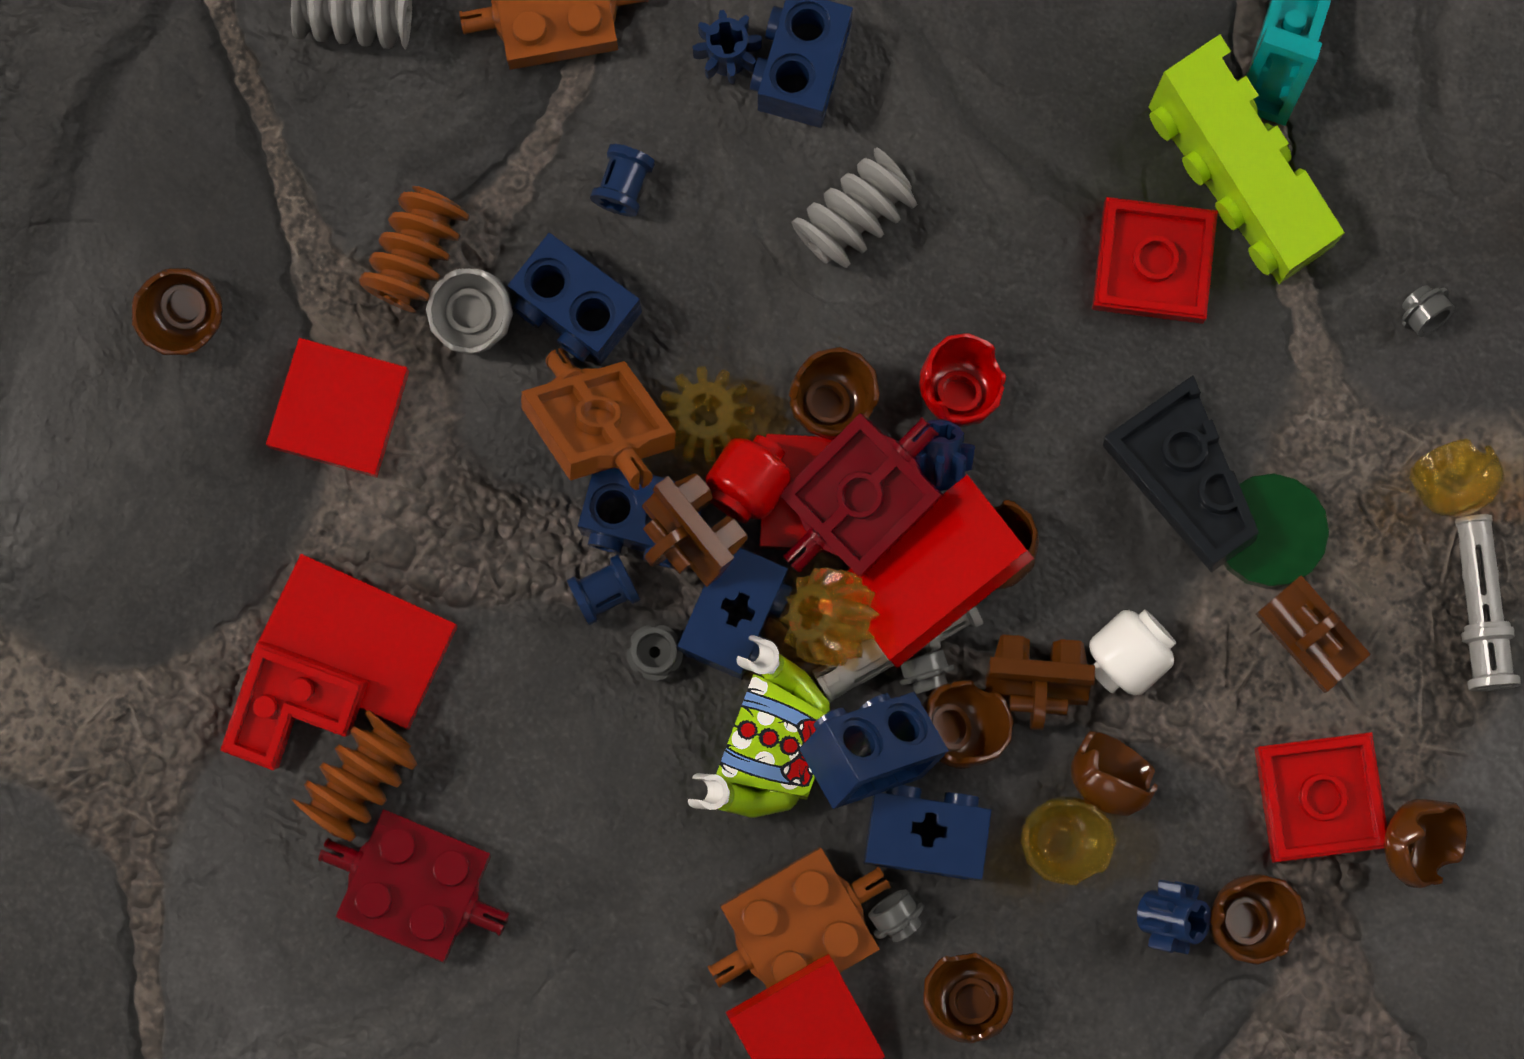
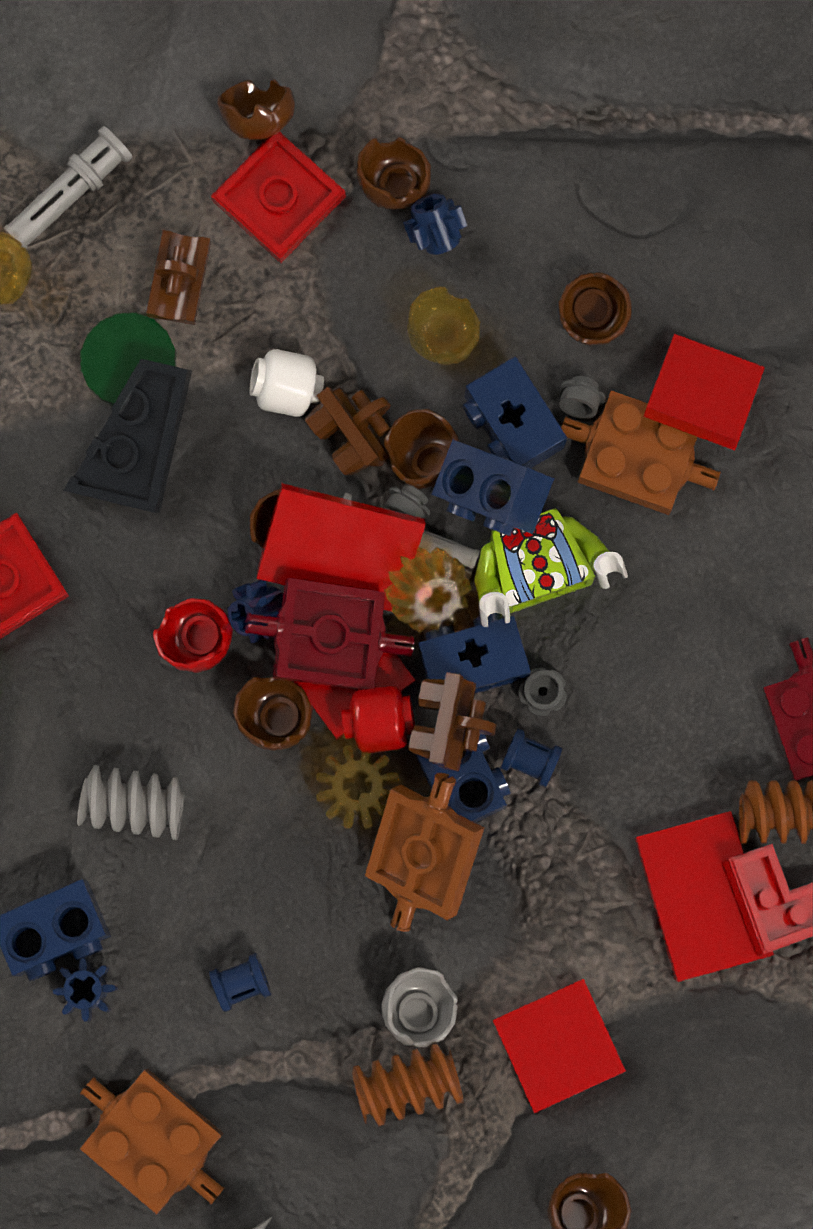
camera: 130 degrees left, 0 degrees up
(583, 290) = (339, 944): dark blue brick -> none
(1112, 775) = (376, 331): reddish brown hair -> none

